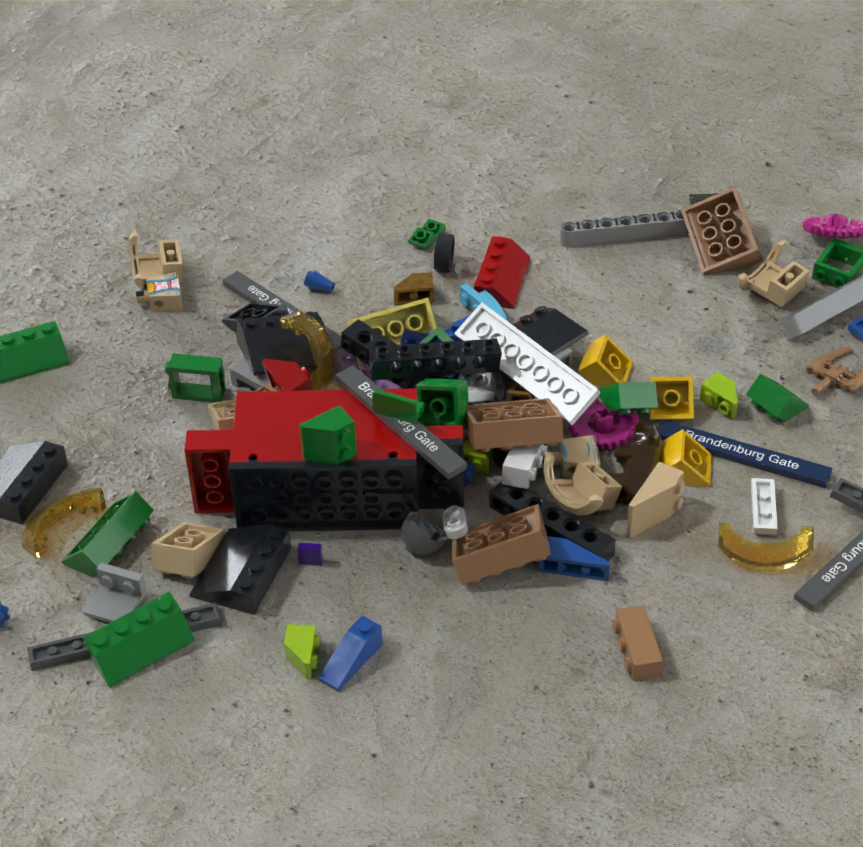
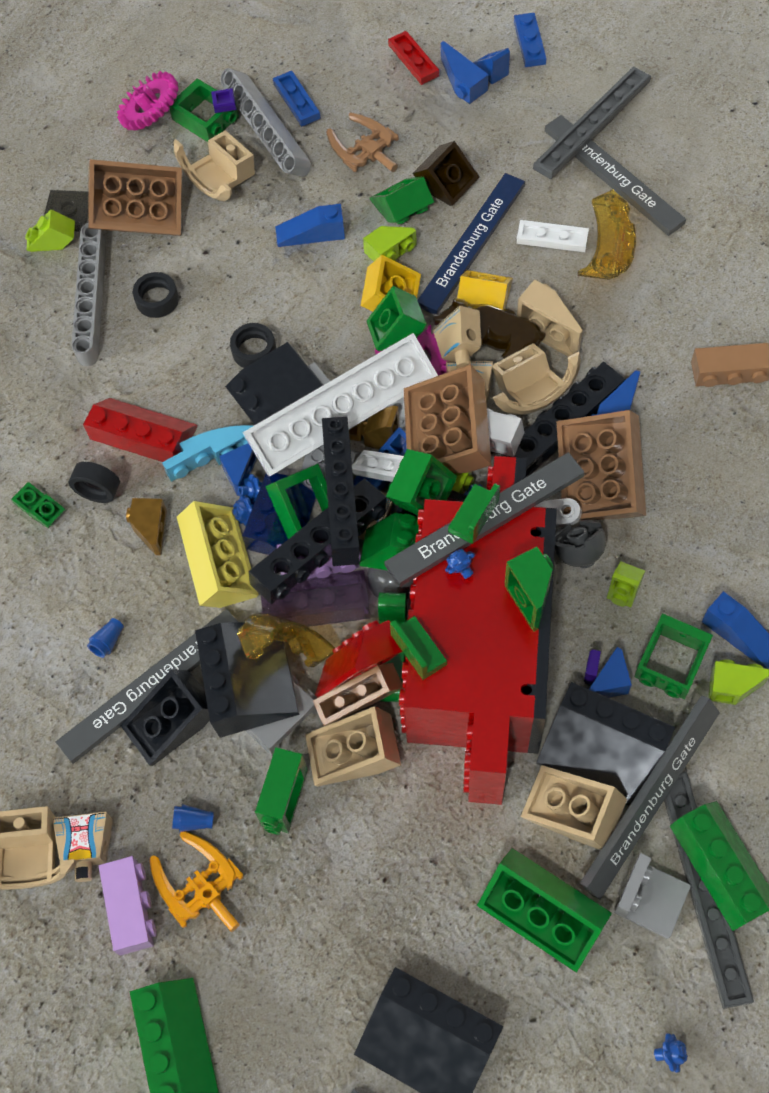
camera: 80 degrees left, 20 degrees up
(34, 535) = (496, 988): clear yellow windscreen -> none
(118, 319) = (127, 905): none -> lavender brick
(130, 355) = (206, 892): none -> light orange bar
(180, 340) = (191, 818): none -> blue cone
(200, 590) = (650, 798): none -> dark grey tile
(280, 387) = (418, 647): none -> green panel
(303, 566) = (614, 677): none -> blue slope
(312, 585) = (683, 634): none -> green window
(355, 405) = (460, 563): none -> blue plant
(387, 566) = (625, 584): none -> lime slope
(596, 315) = (246, 332): none -> black tyre
(605, 363) = (322, 342): yellow slope -> none
(623, 434) = (459, 336): none -> tan torso
(633, 274) = (151, 281): none -> black tyre
(679, 196) = (50, 233): none -> lime slope
(730, 349) = (313, 226): none -> blue slope
(815, 426) = (447, 173): none -> dark brown slope
(846, 267) = (223, 100): none -> dark purple tile

